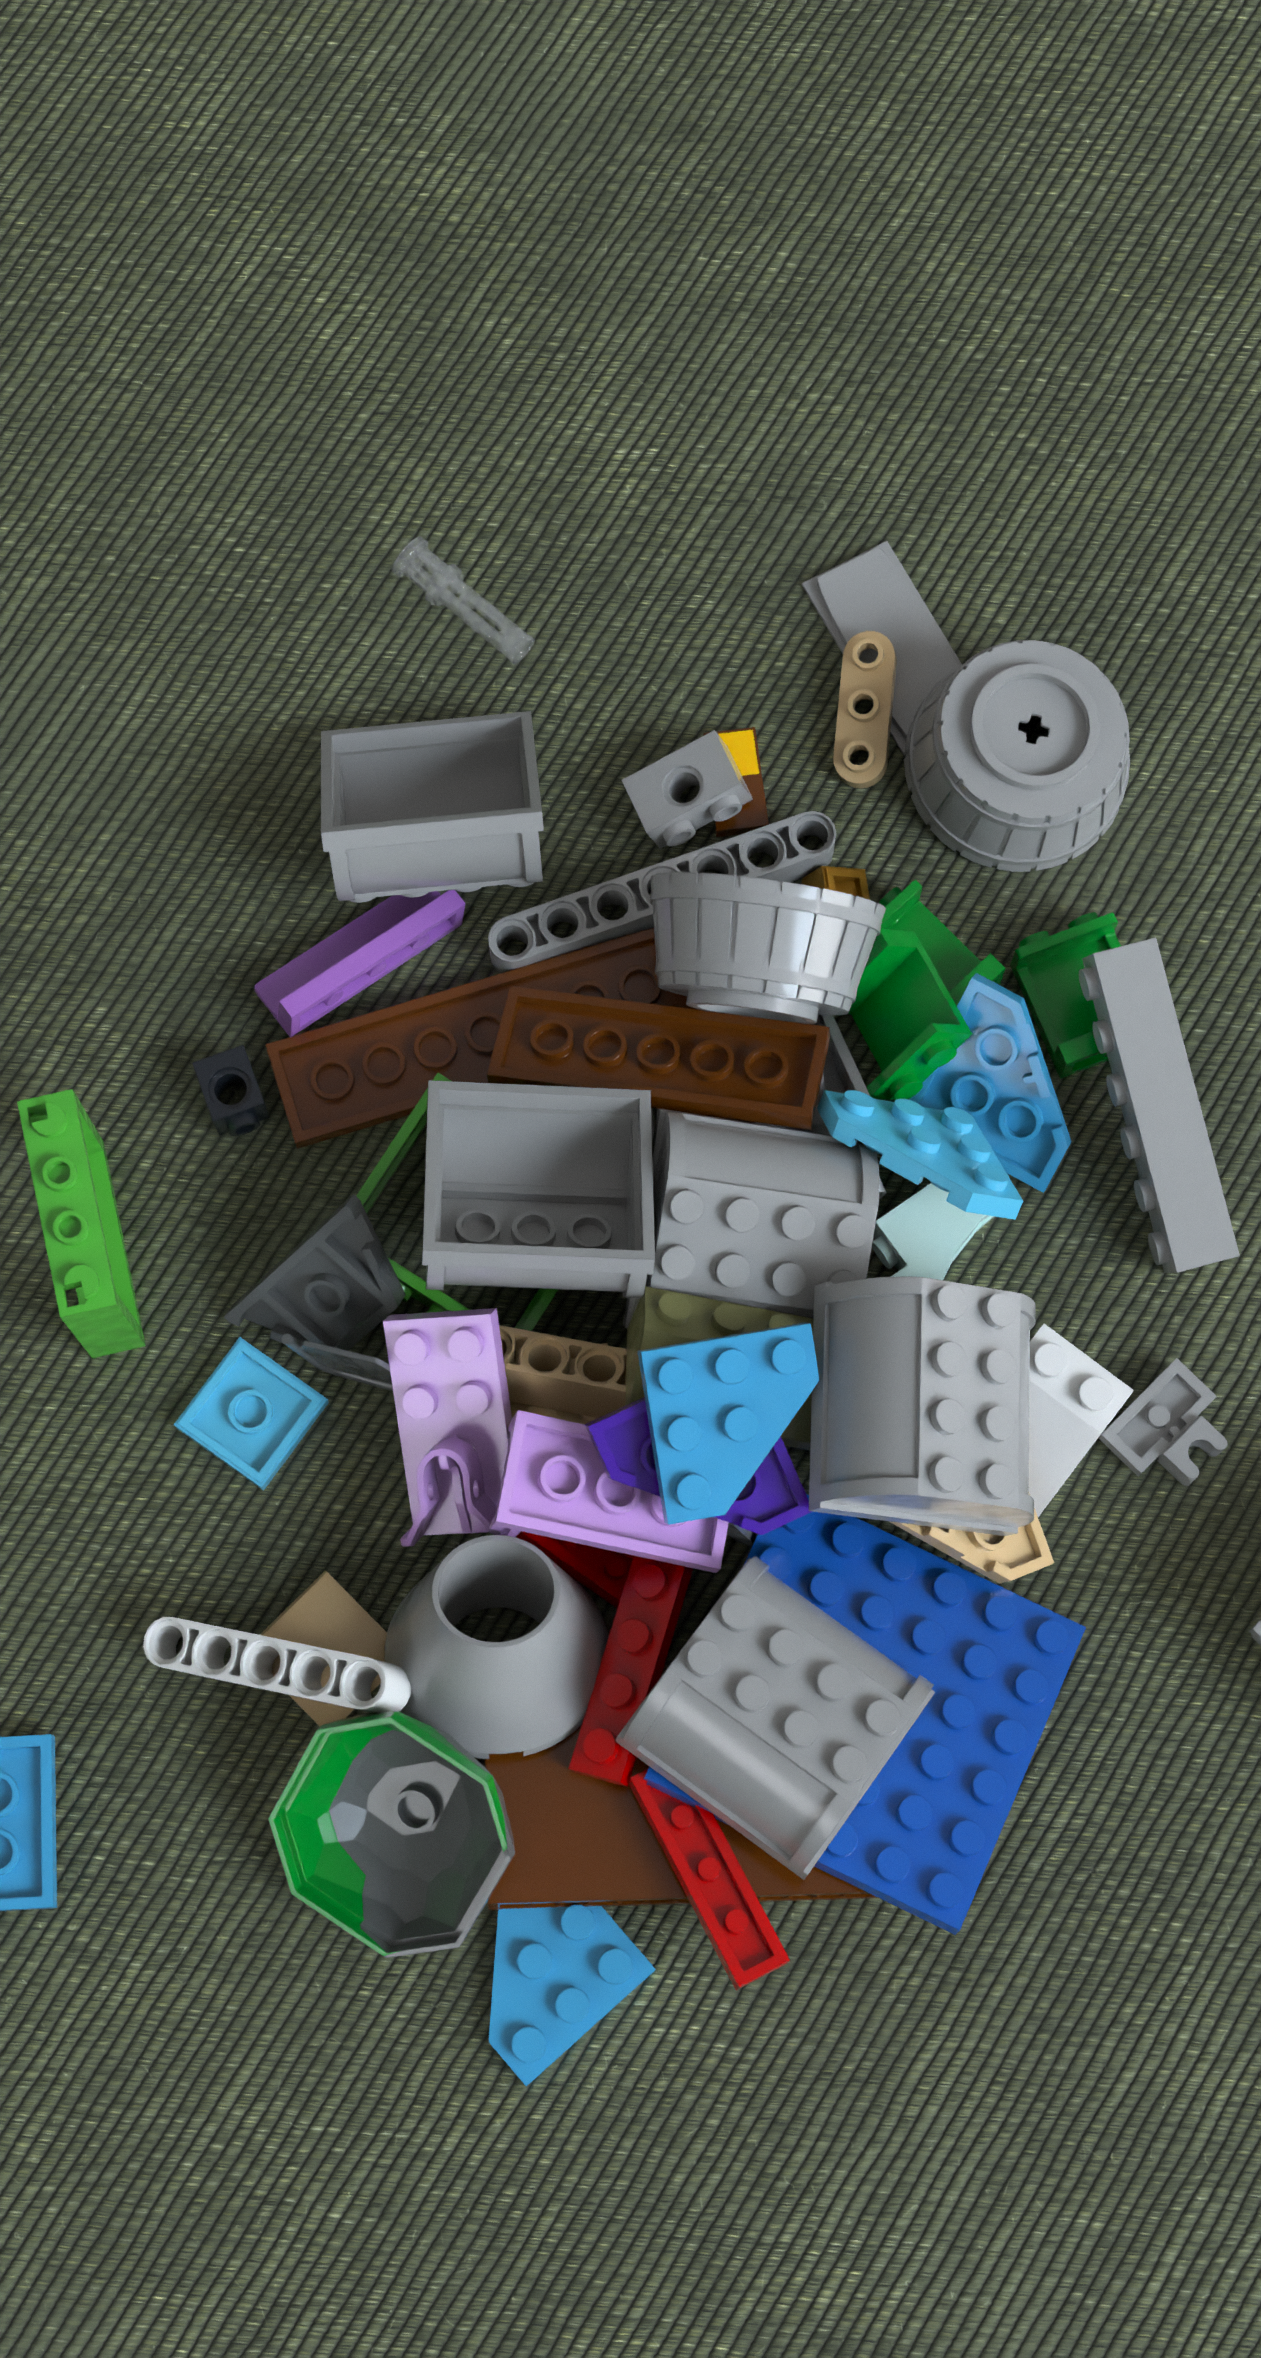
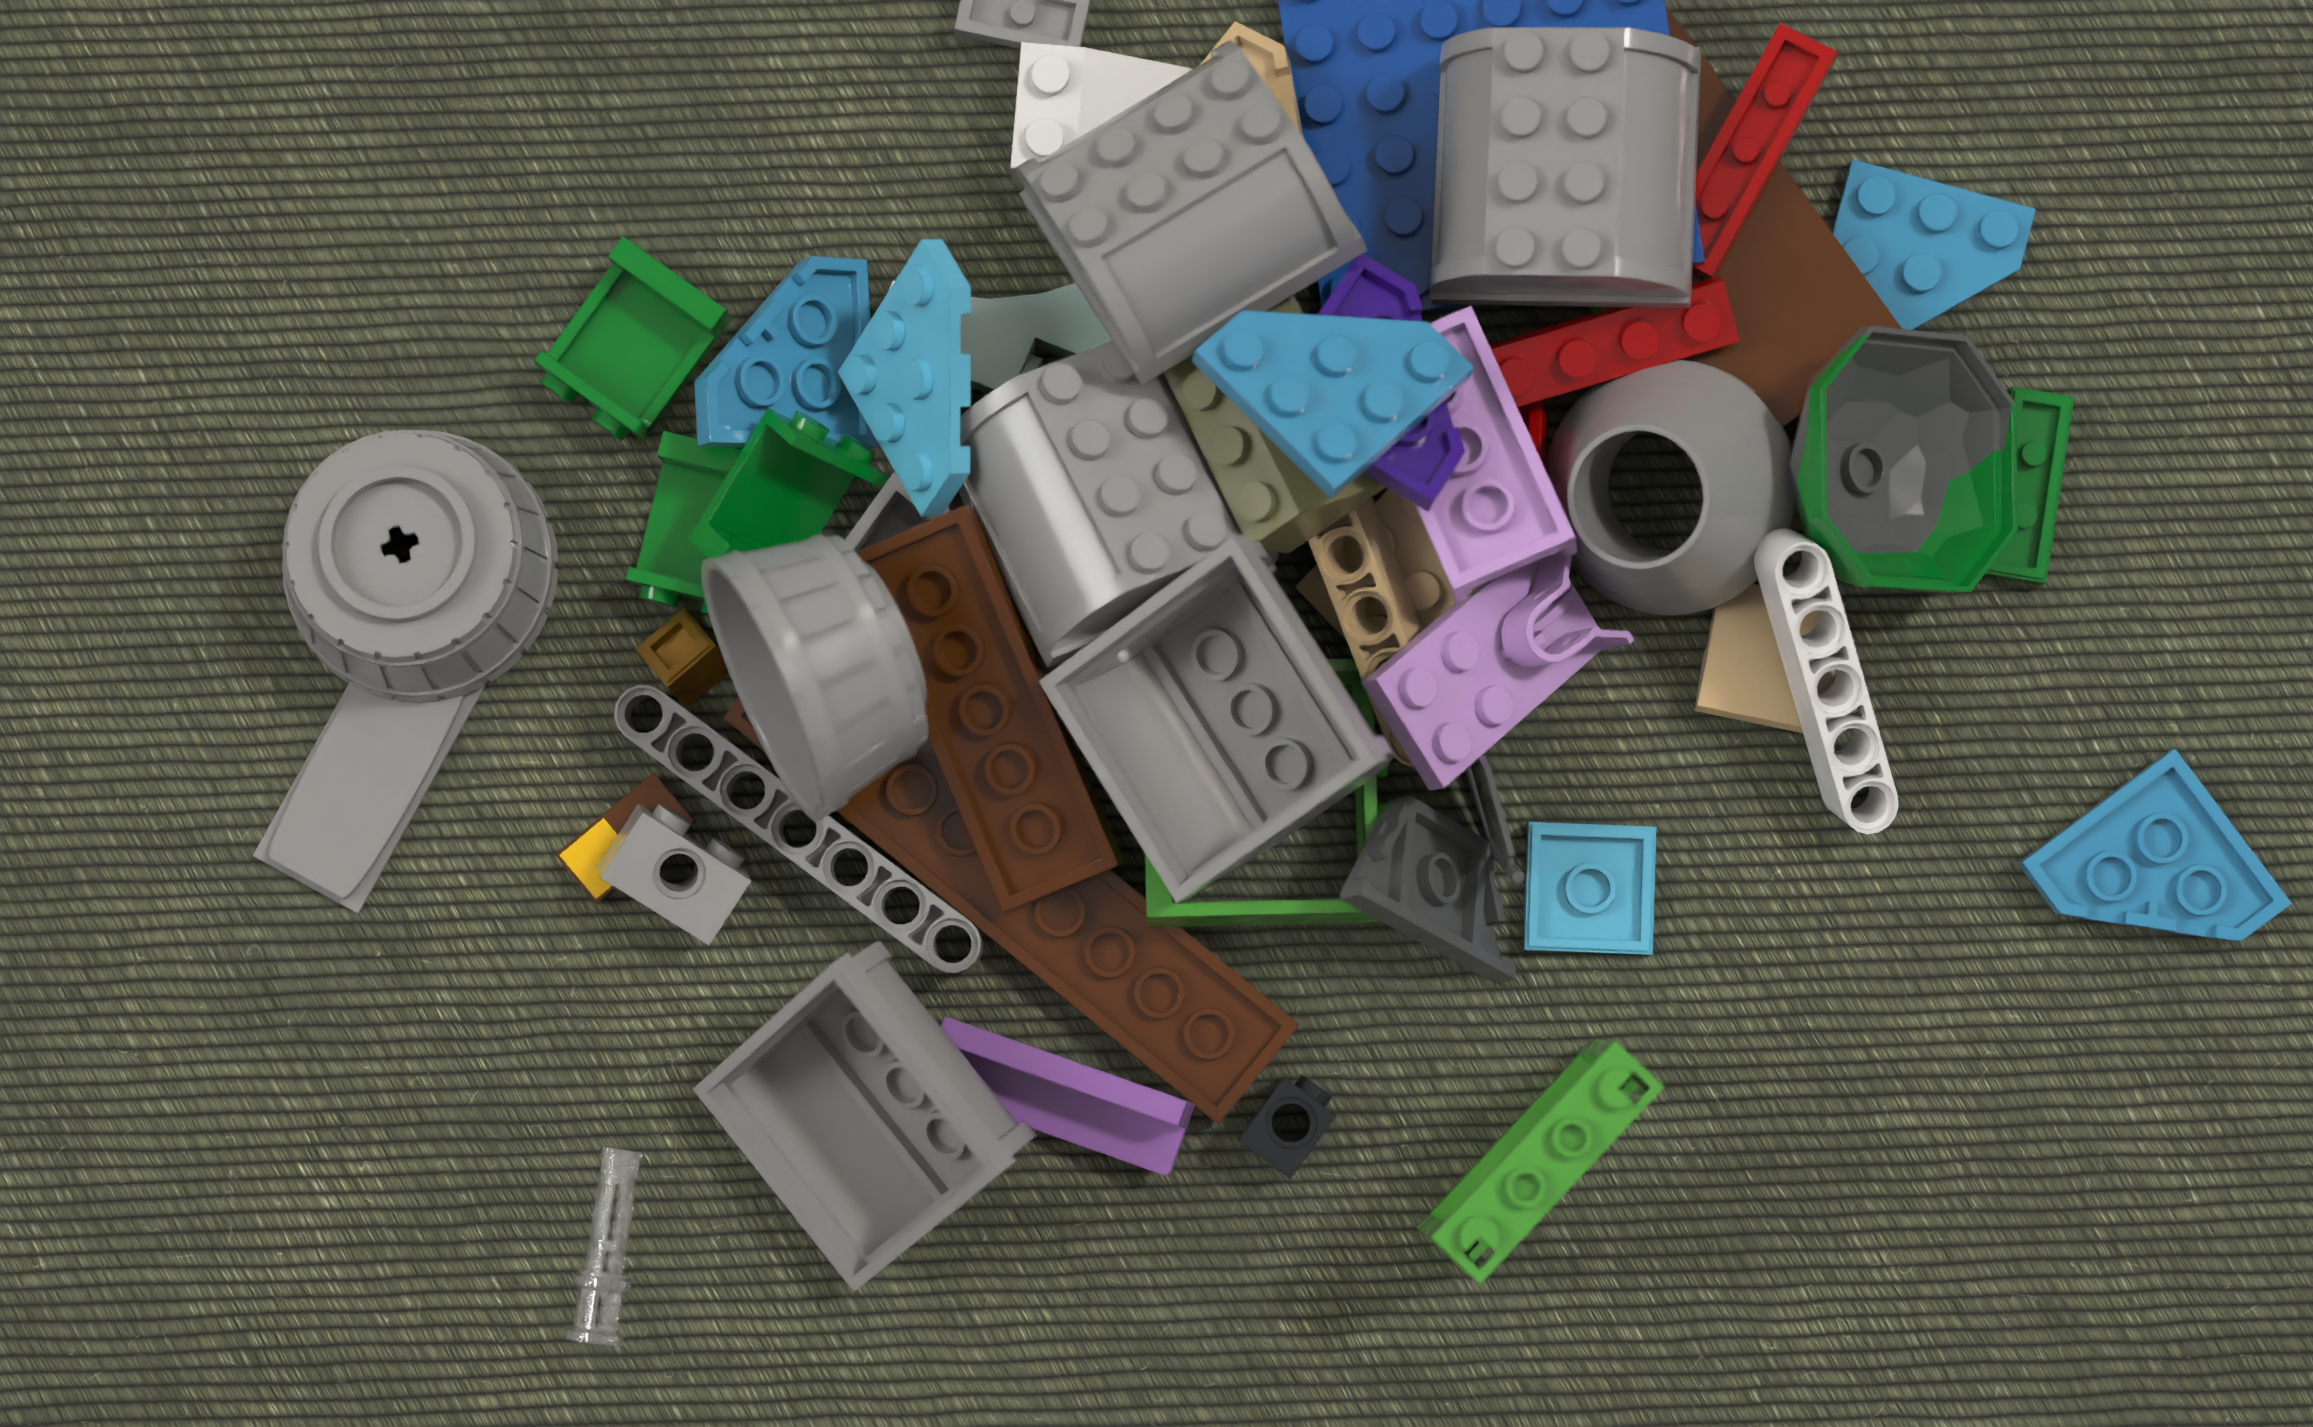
camera: 125 degrees left, 10 degrees up
(338, 1956) = (2042, 443): none -> green tile
(871, 730) = (432, 759): tan plate -> none
(1159, 1107) = (713, 191): light grey brick -> none

